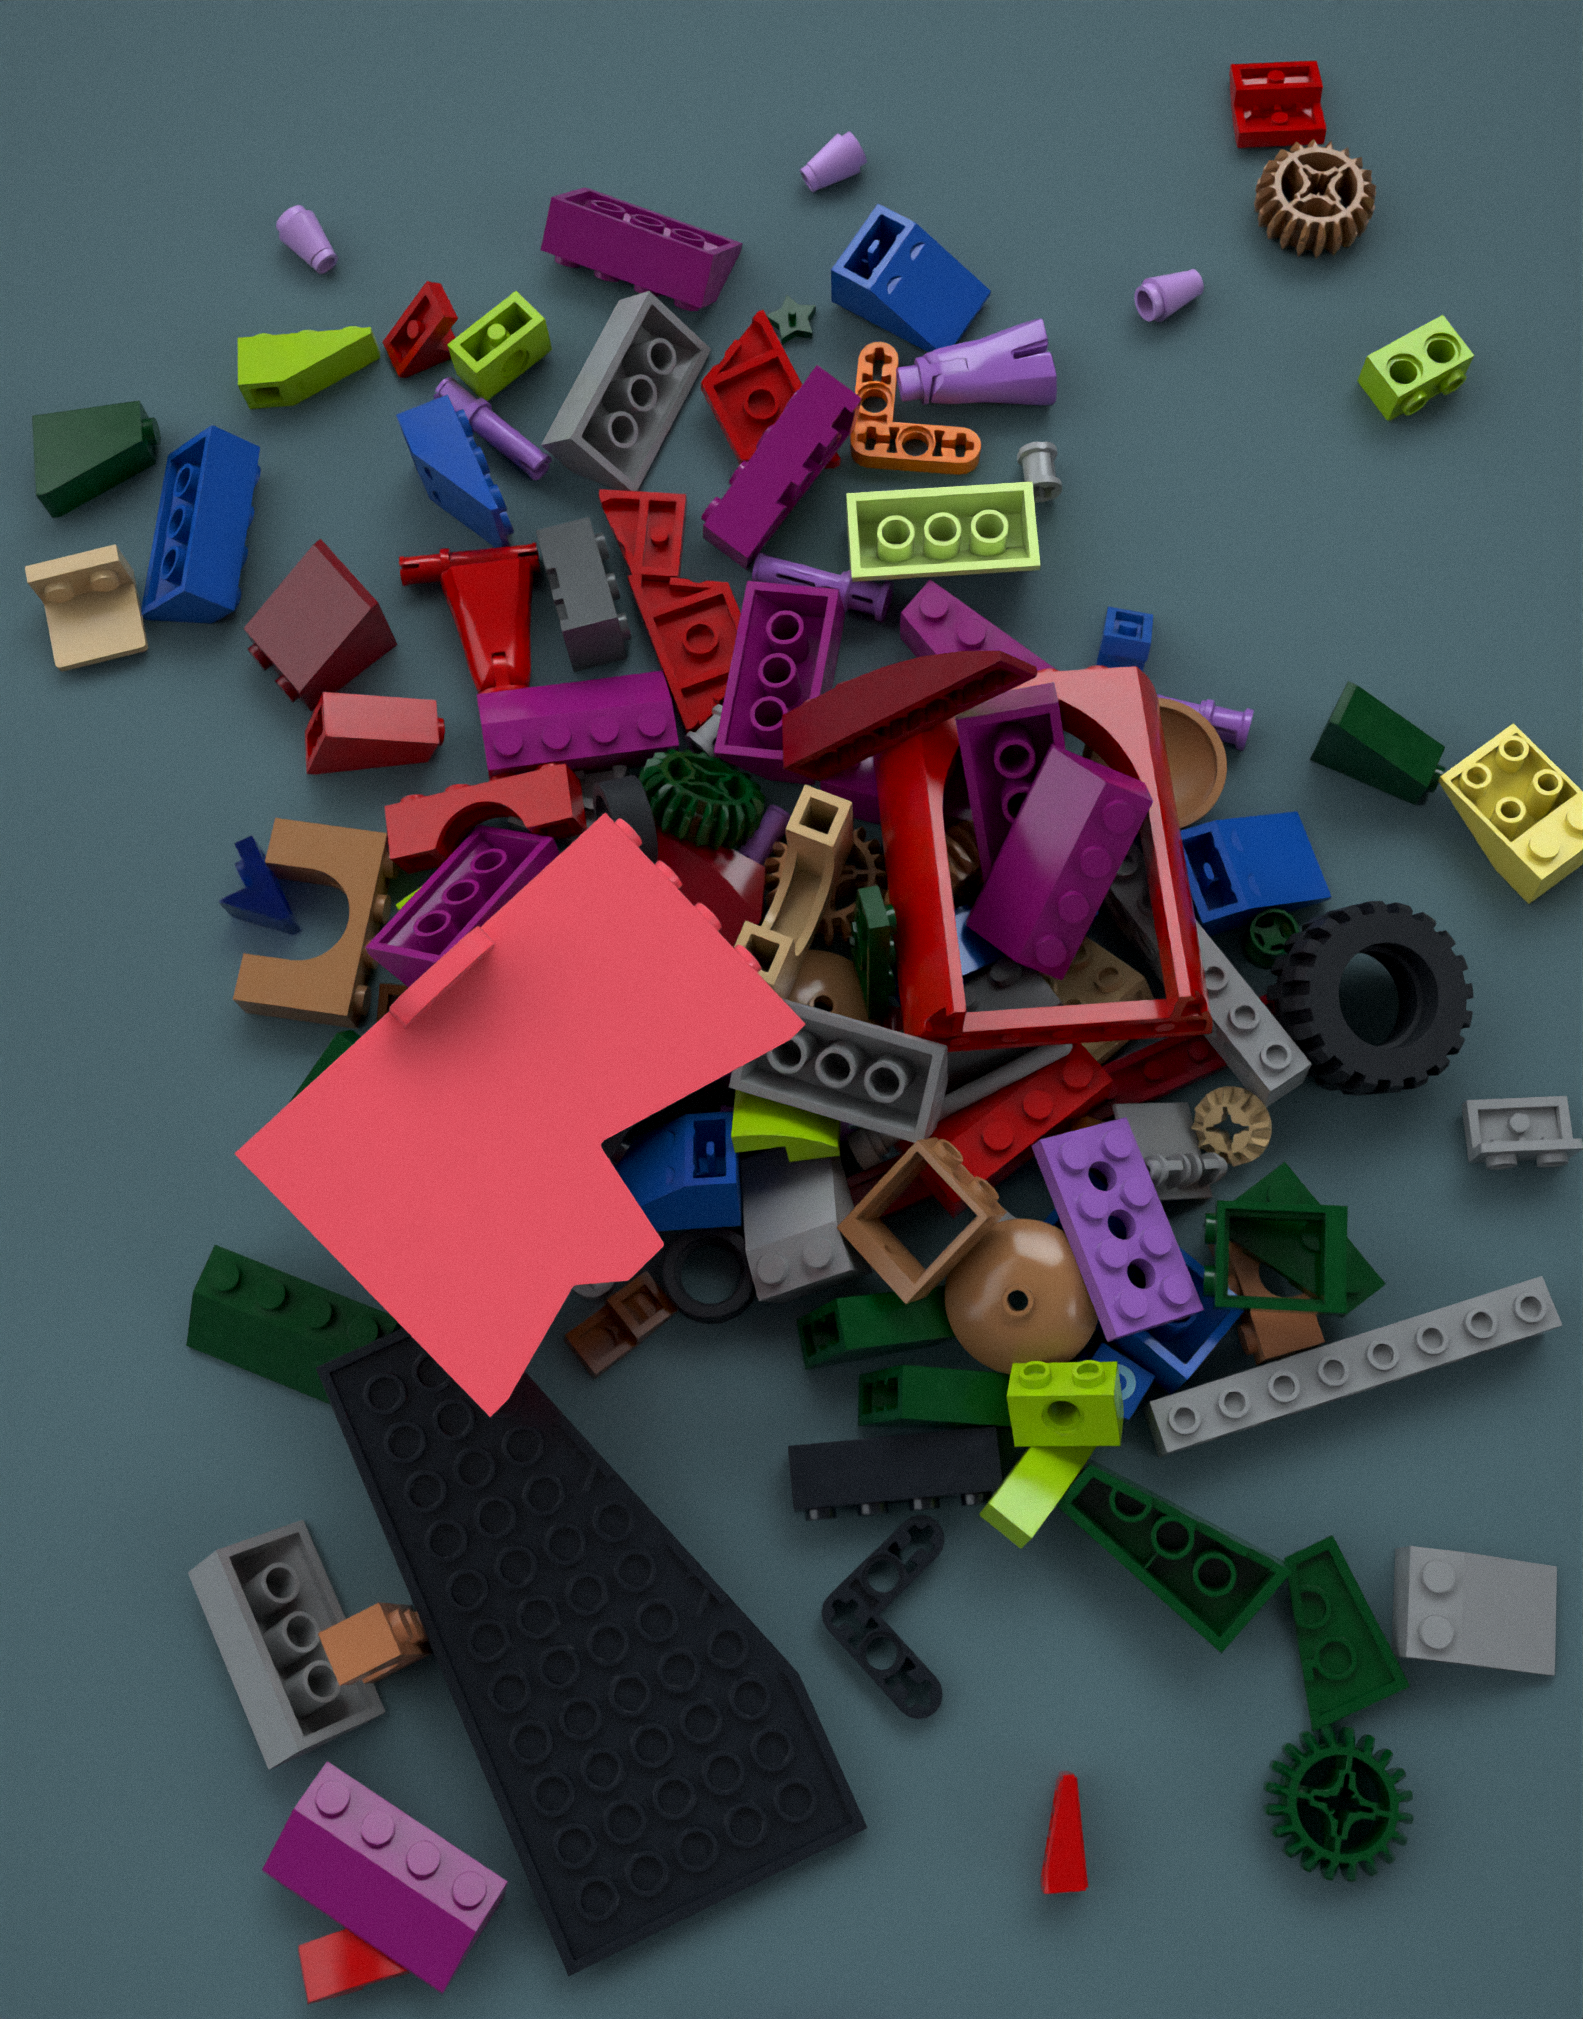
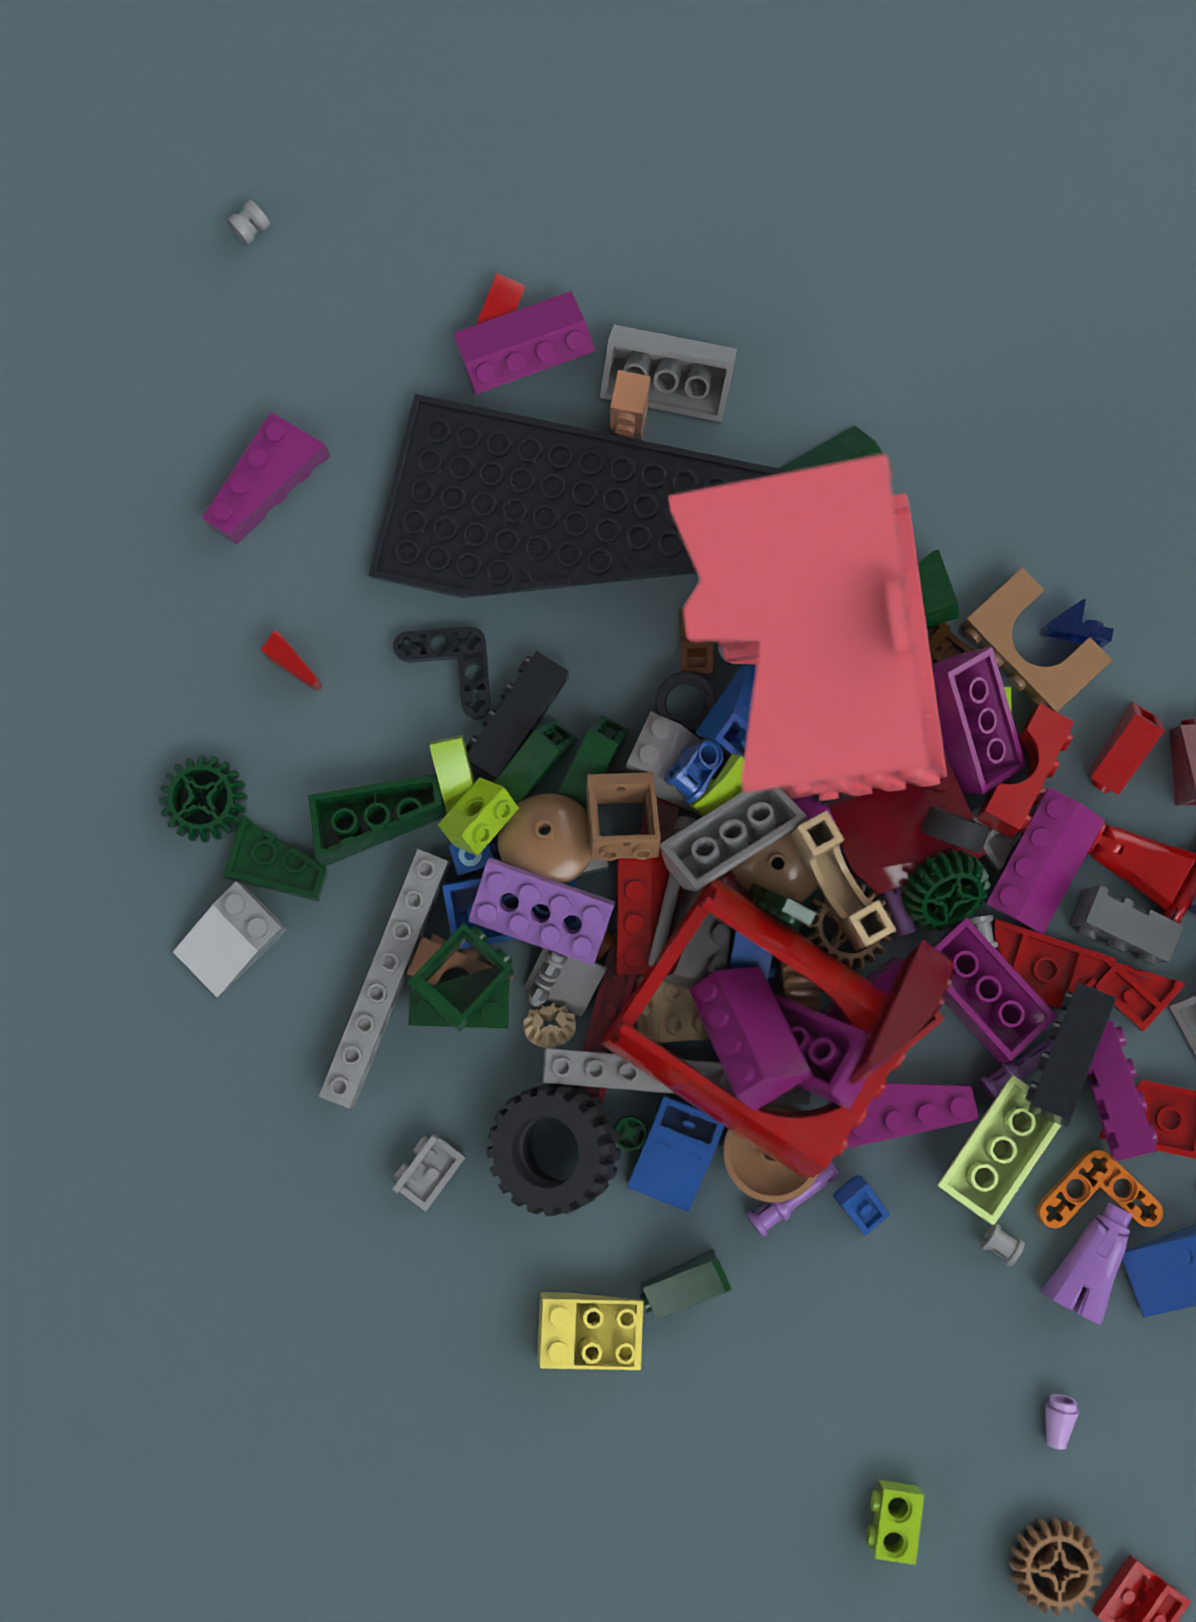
camera: 125 degrees right, 10 degrees up
(780, 531) = (1071, 1054): none -> black brick
(790, 1186) = (695, 769): none -> blue piece

